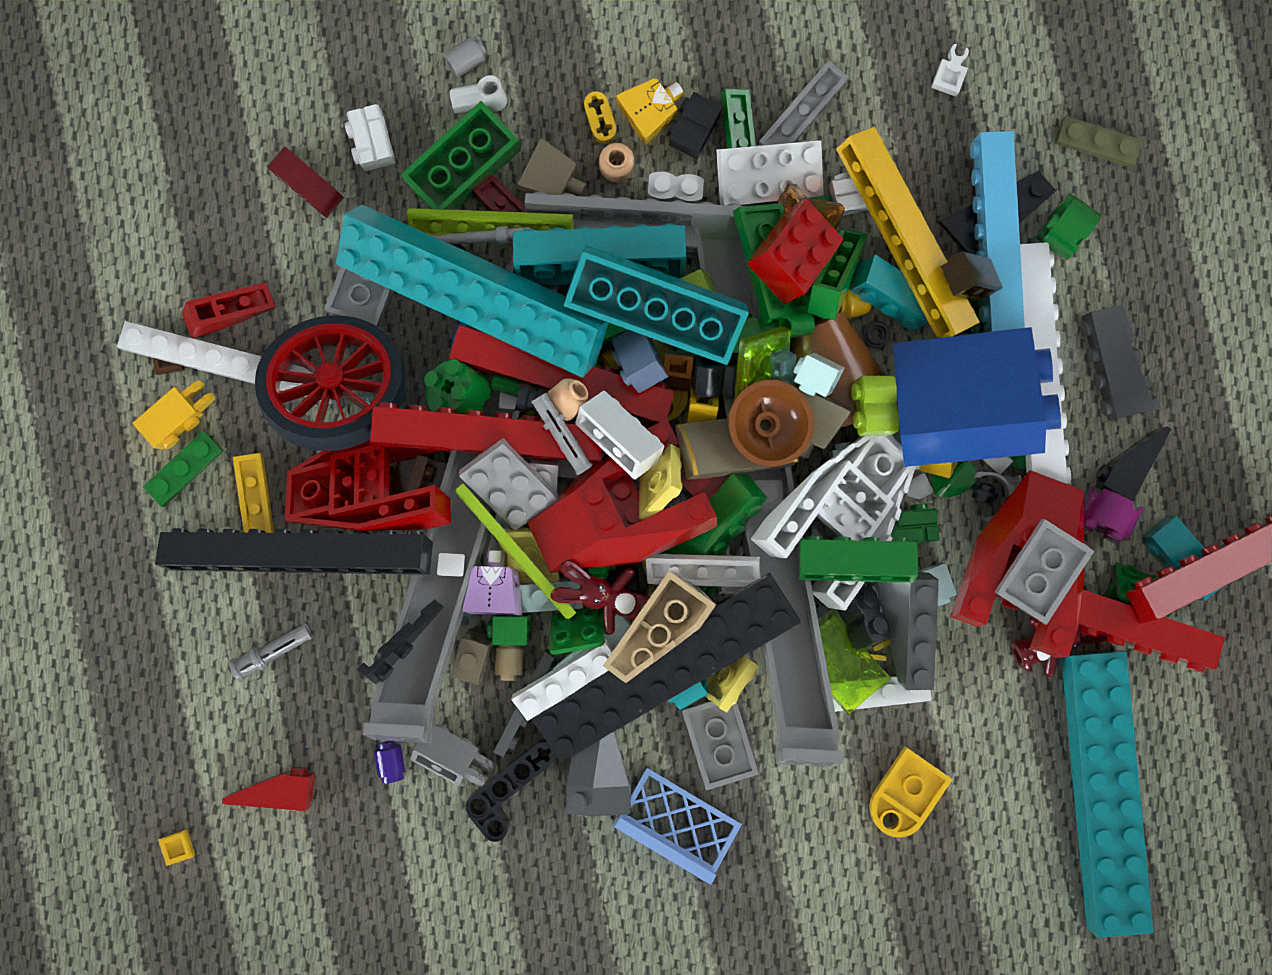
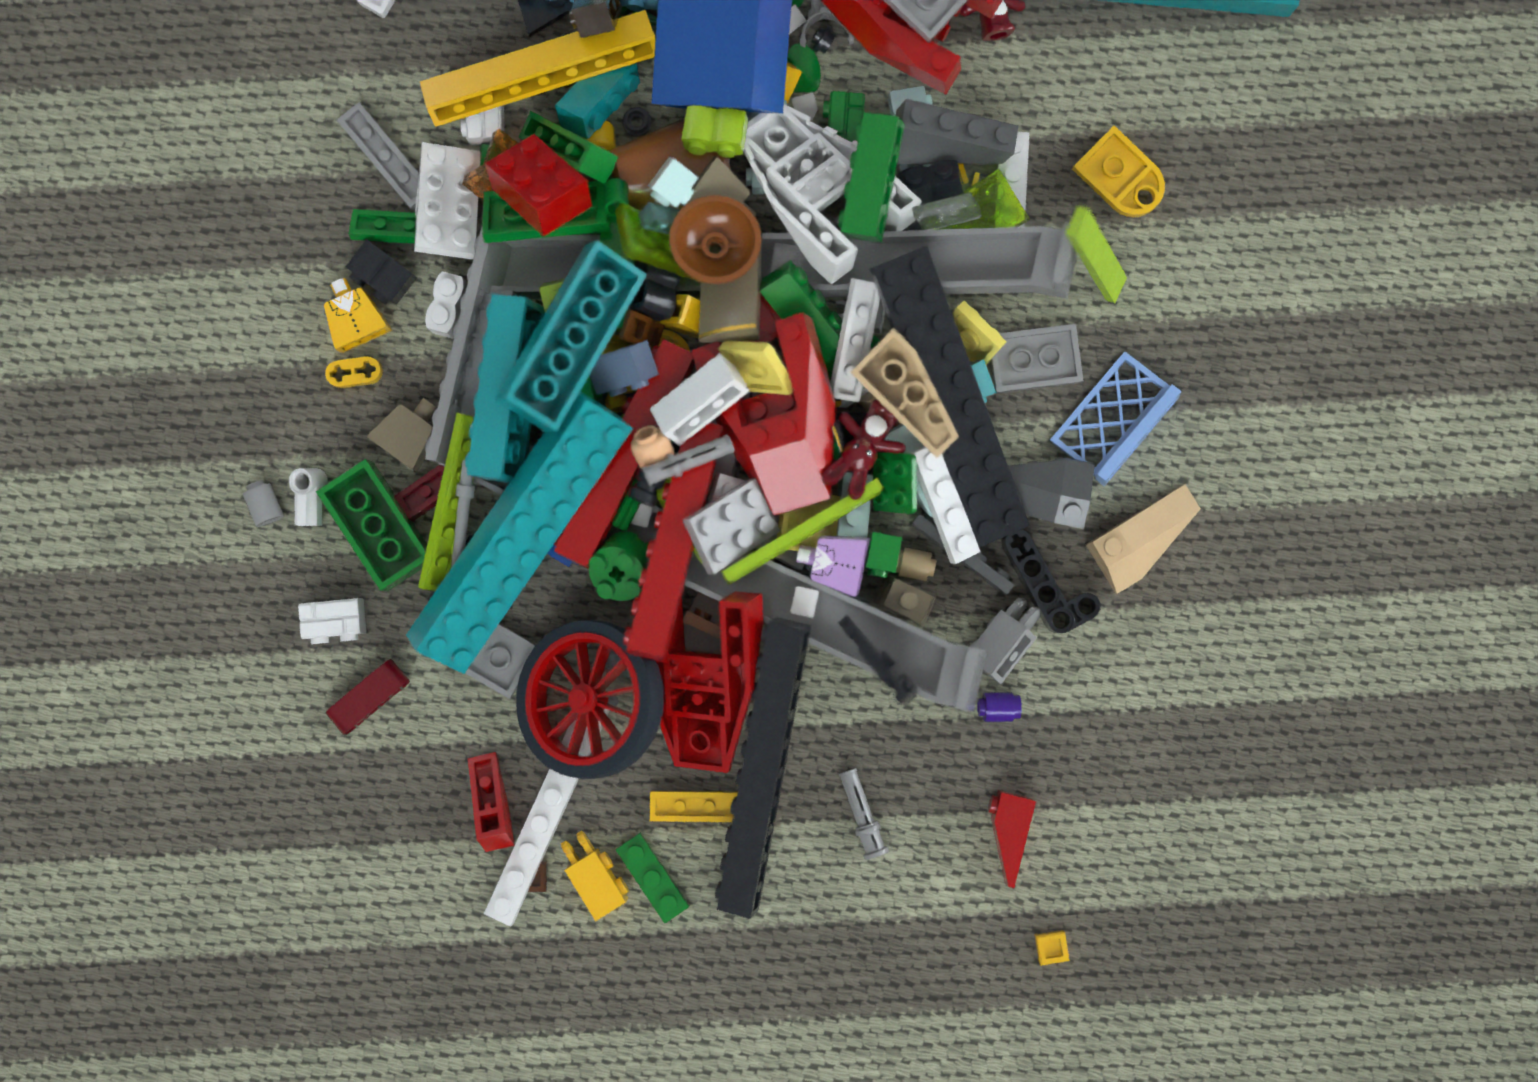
camera: 70 degrees left, 0 degrees up
(565, 866) = (1138, 542): none -> tan wedge
(610, 571) = (839, 434): none -> black sticker
(618, 154) = (398, 357): light nougat head -> none
(821, 784) = (1096, 254): none -> lime tile
(839, 636) = (947, 212): none -> clear tile

